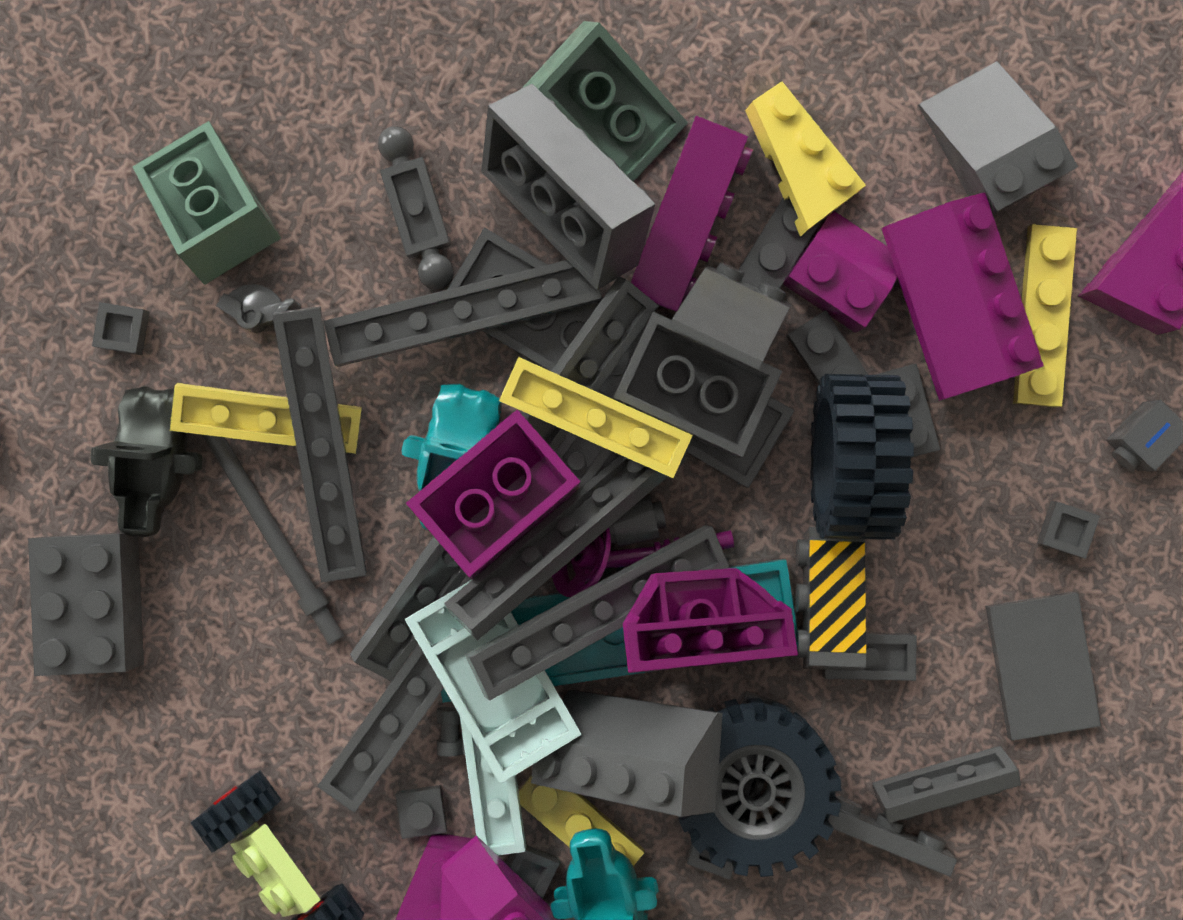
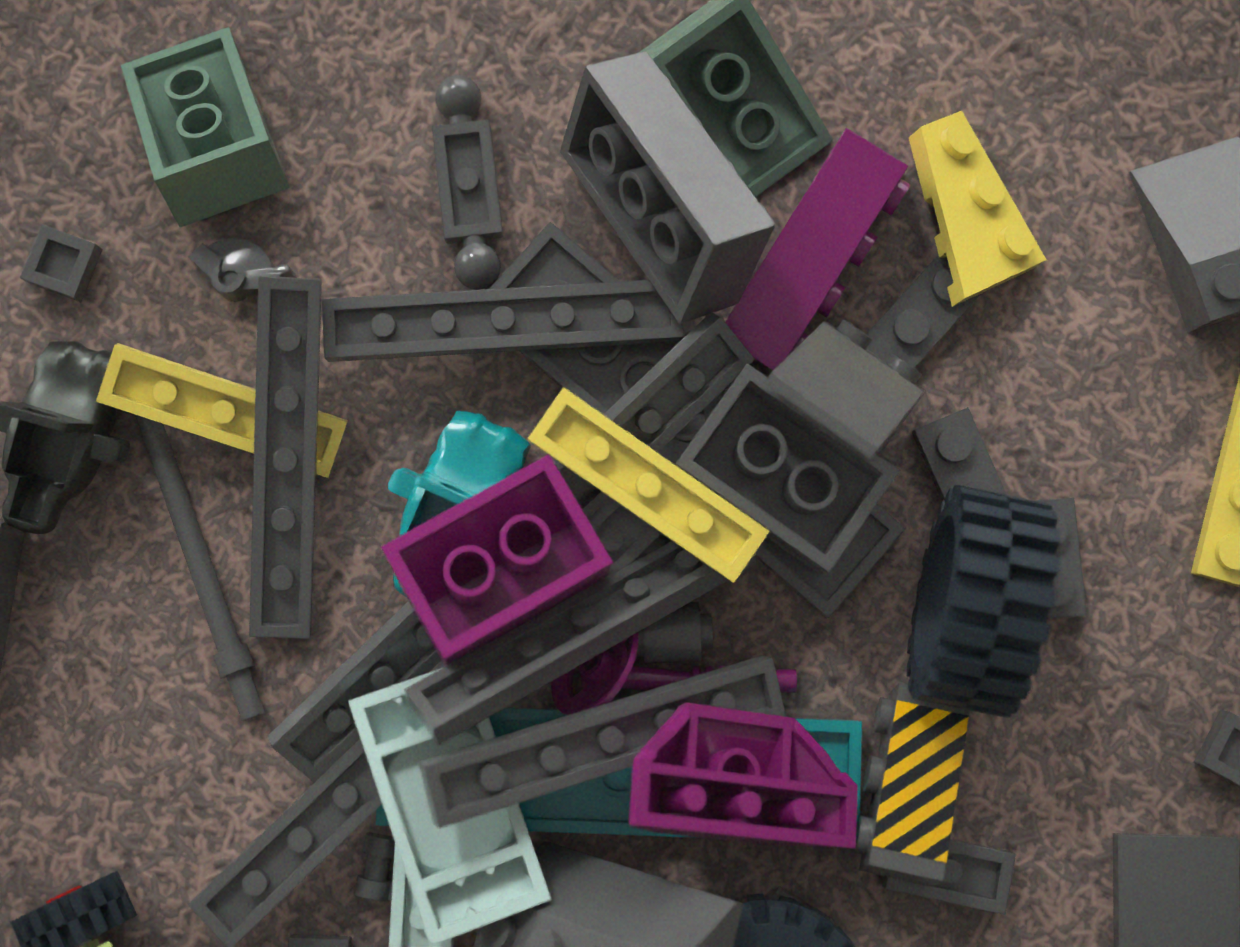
camera: 15 degrees right, 5 degrees down
(843, 272) = (1001, 365): magenta slope -> none
(962, 296) = (1147, 421): magenta slope -> none

